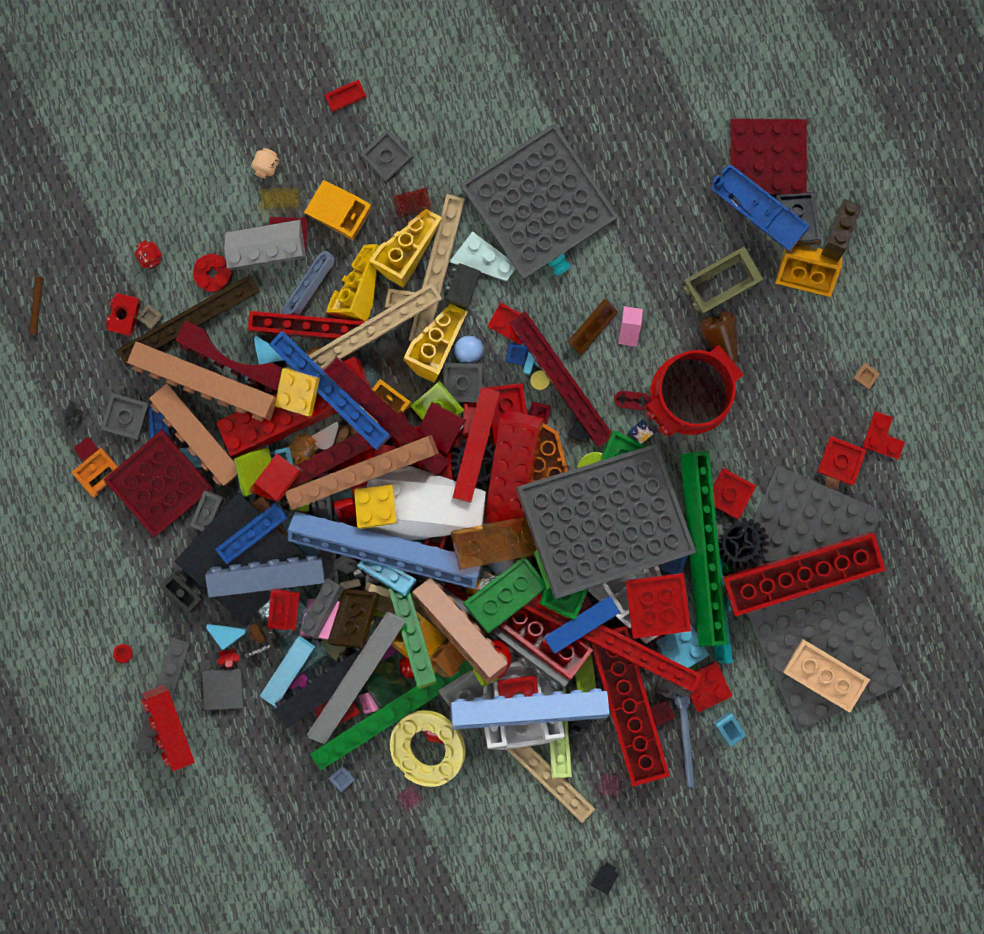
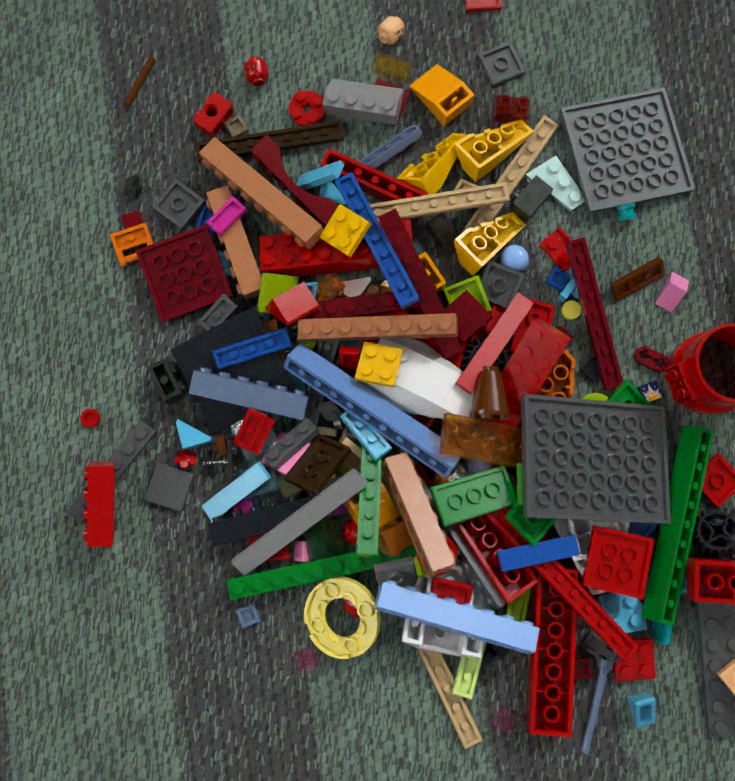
camera: 20 degrees right, 5 degrees down
(178, 415) = (226, 216): none -> dark pink tile
(251, 342) = (320, 175): none -> medium azure tile
(487, 499) = (490, 396): none -> reddish brown cone

